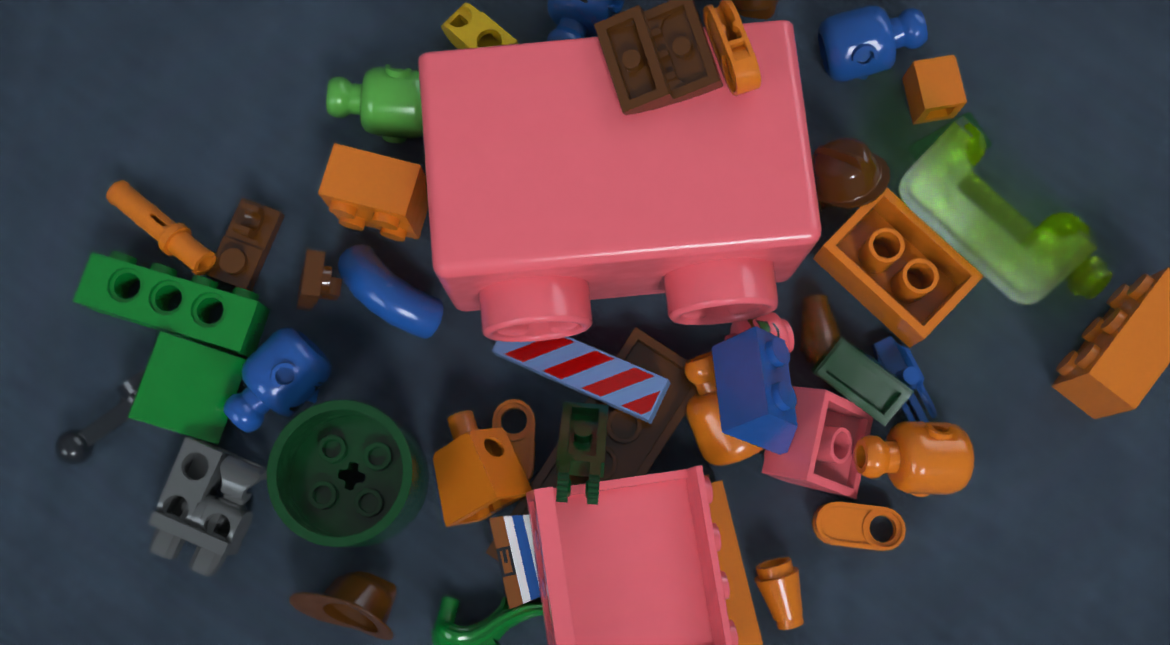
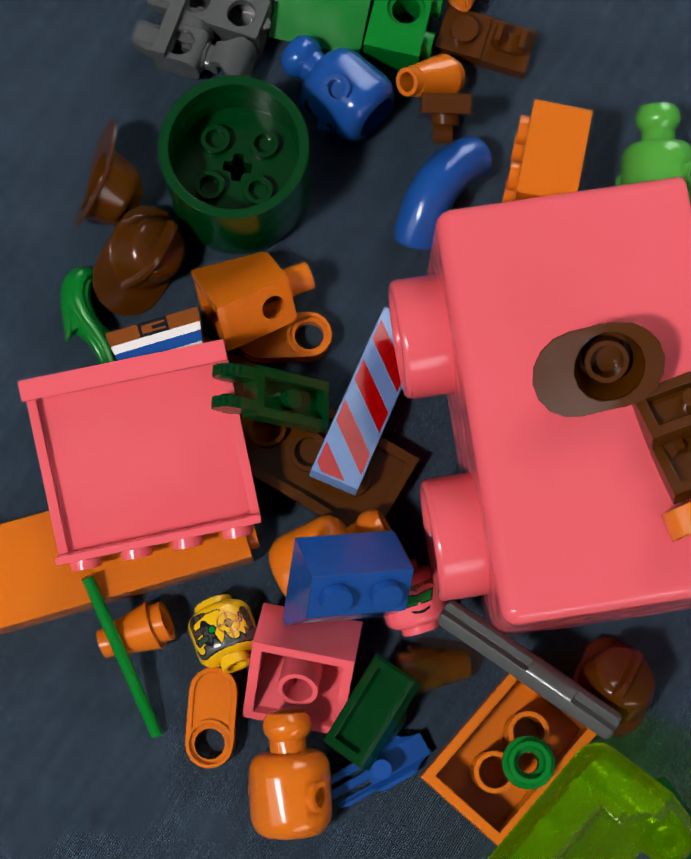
camera: 85 degrees right, 0 degrees up
(279, 291) = (431, 75): none -> orange cone
(430, 577) = (138, 261): none -> reddish brown piece
(604, 132) = (598, 369): none -> reddish brown piece
(786, 510) = (223, 633): none -> yellow head
(805, 606) = (122, 656): none -> green axle
(836, 237) = (530, 669): none -> dark grey axle
(925, 236) = (544, 757): none -> green plate

